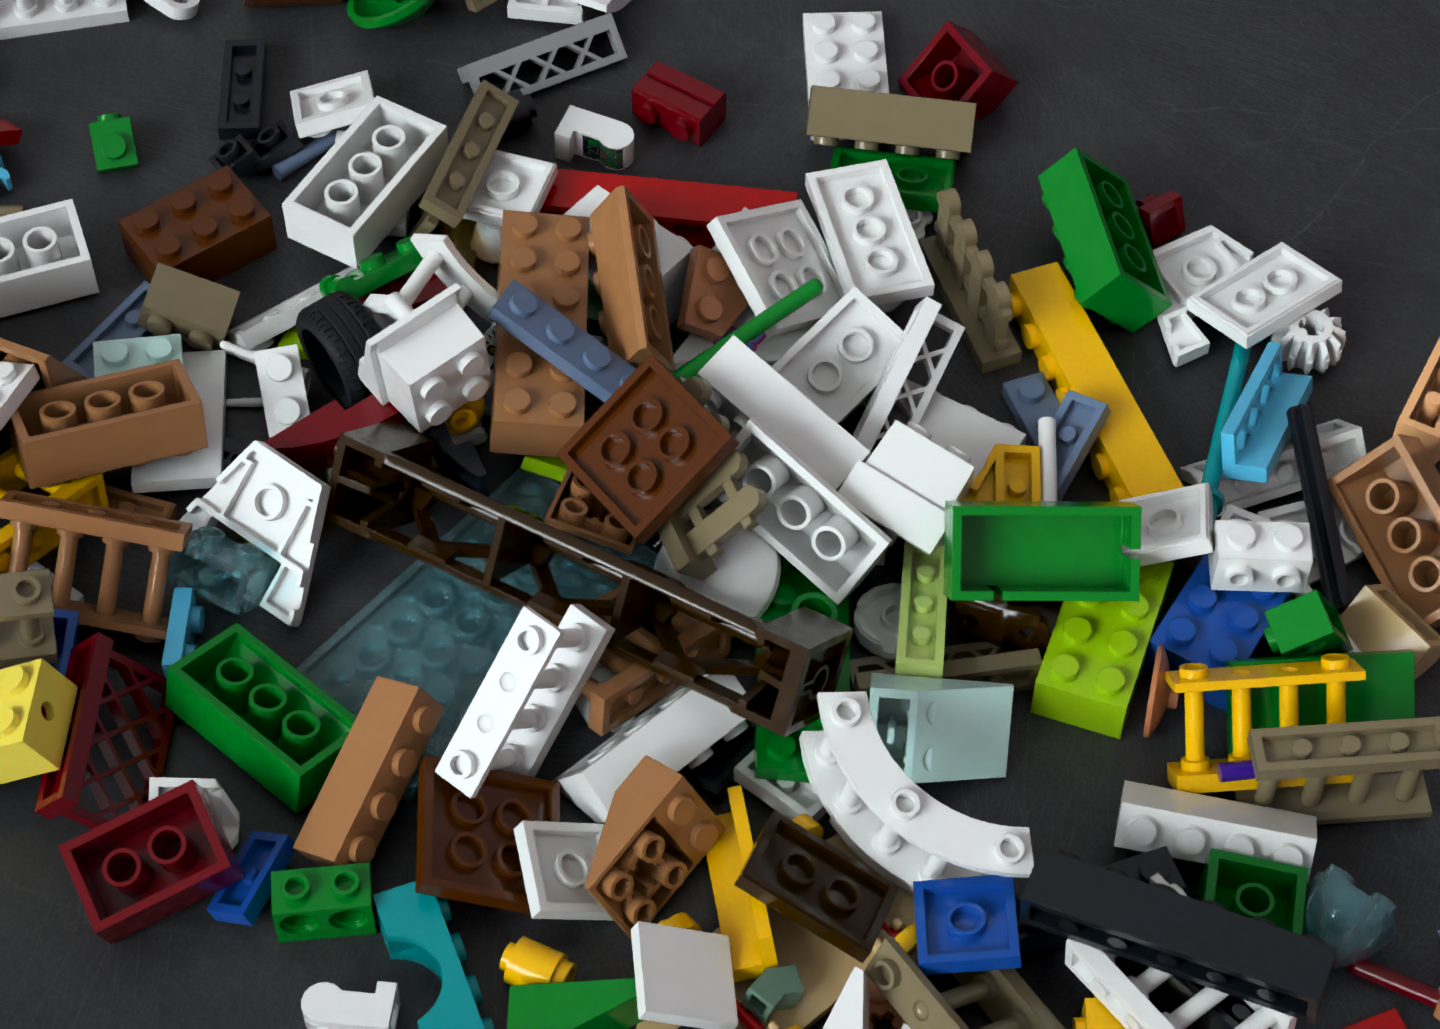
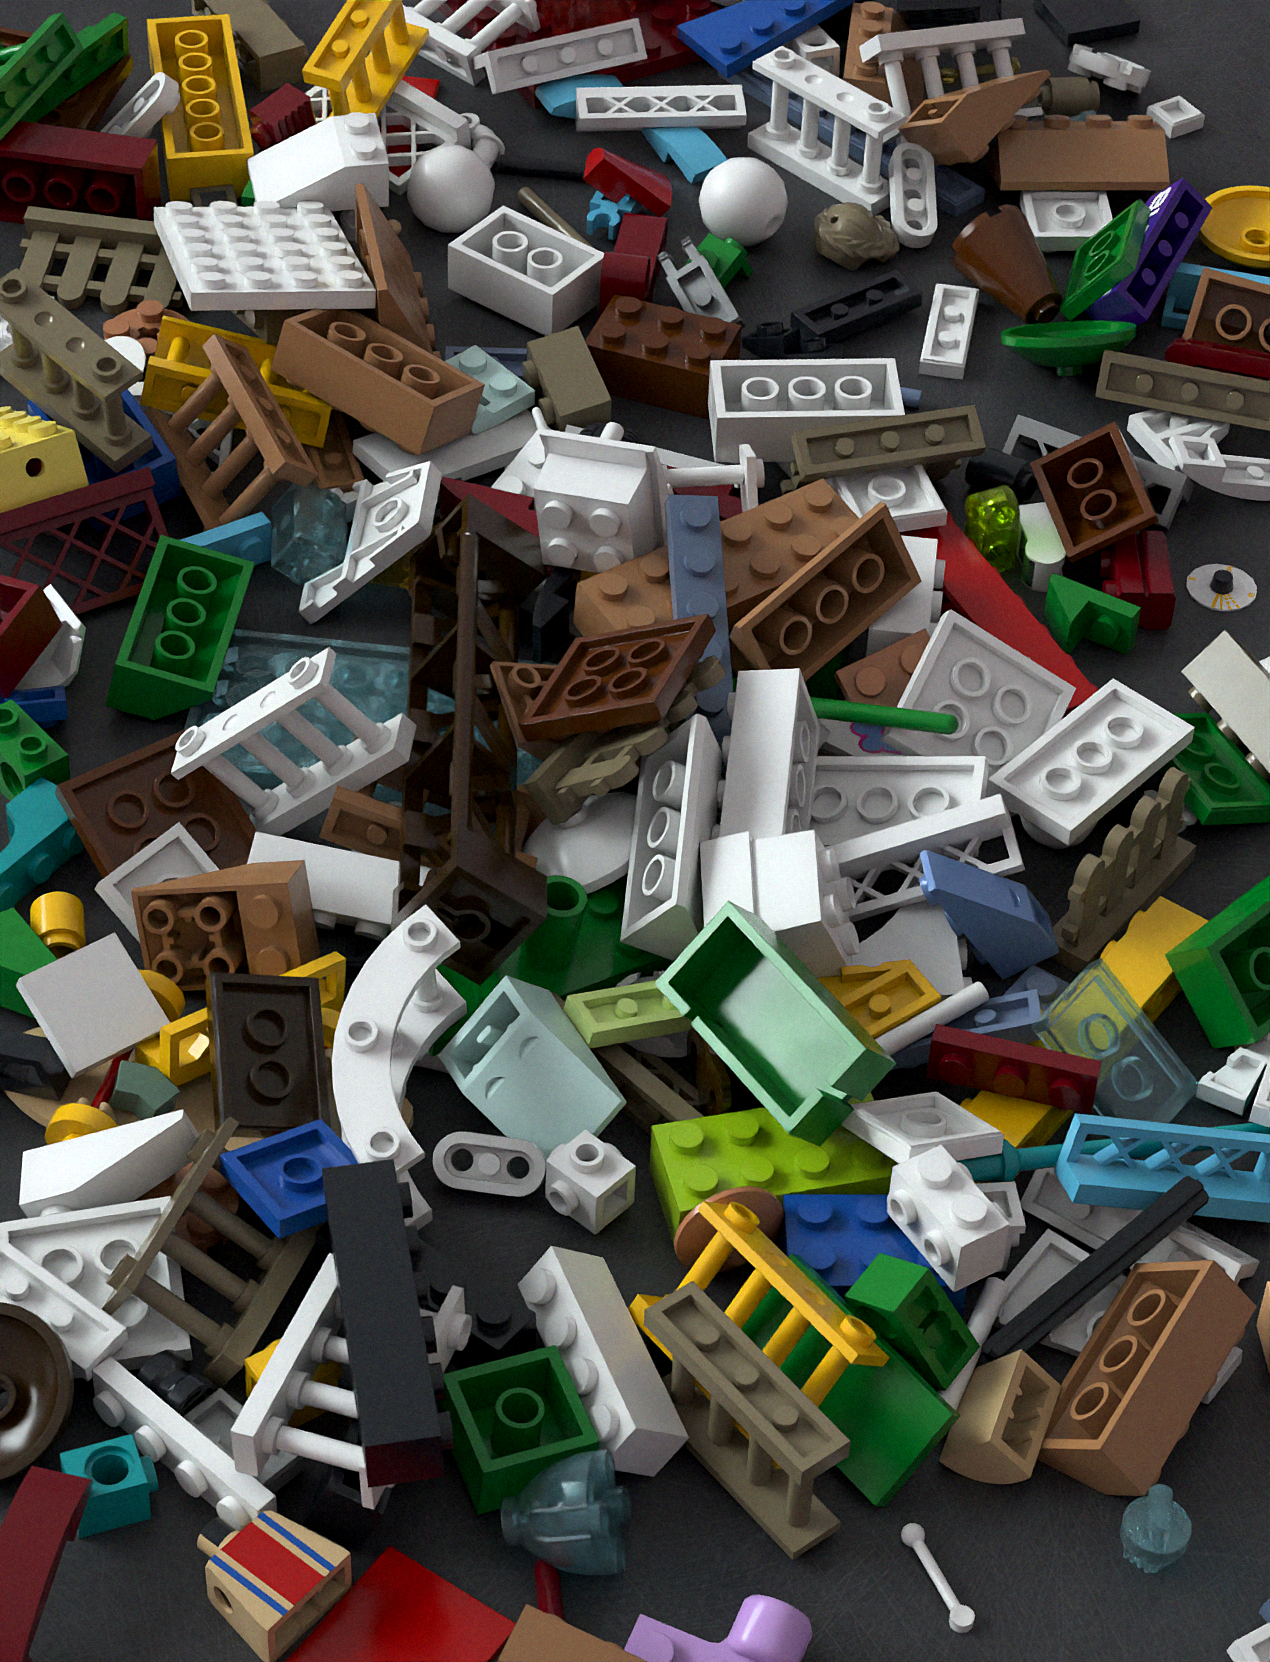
camera: 55 degrees right, 10 degrees down
(54, 178) = (634, 263): none -> dark red beam
(71, 81) = (743, 201): none -> white piece
(144, 167) = (698, 286): none -> flat silver hinge
(168, 42) = (853, 235): none -> dark tan hair
(306, 47) = (949, 331): none -> white tile
(331, 104) = (913, 366): white plate -> none
(369, 774) = (142, 714): medium nougat brick -> none
(374, 271) = (676, 454): green plate -> none
(572, 143) = (994, 524): none -> clear neon green leg
(599, 72) = (1094, 492): none -> reddish brown slope
(689, 153) = (1084, 612): none -> green slope
(708, 64) = (1221, 587): none -> piece
(972, 375) = (995, 913): none -> medium blue slope
(974, 800) = (490, 1164): none -> white plate
(1043, 751) = (589, 1181): none -> white brick
(1132, 446) = (1013, 1069): none -> dark red plate
(1141, 385) = (1138, 1068): none -> clear light blue tile

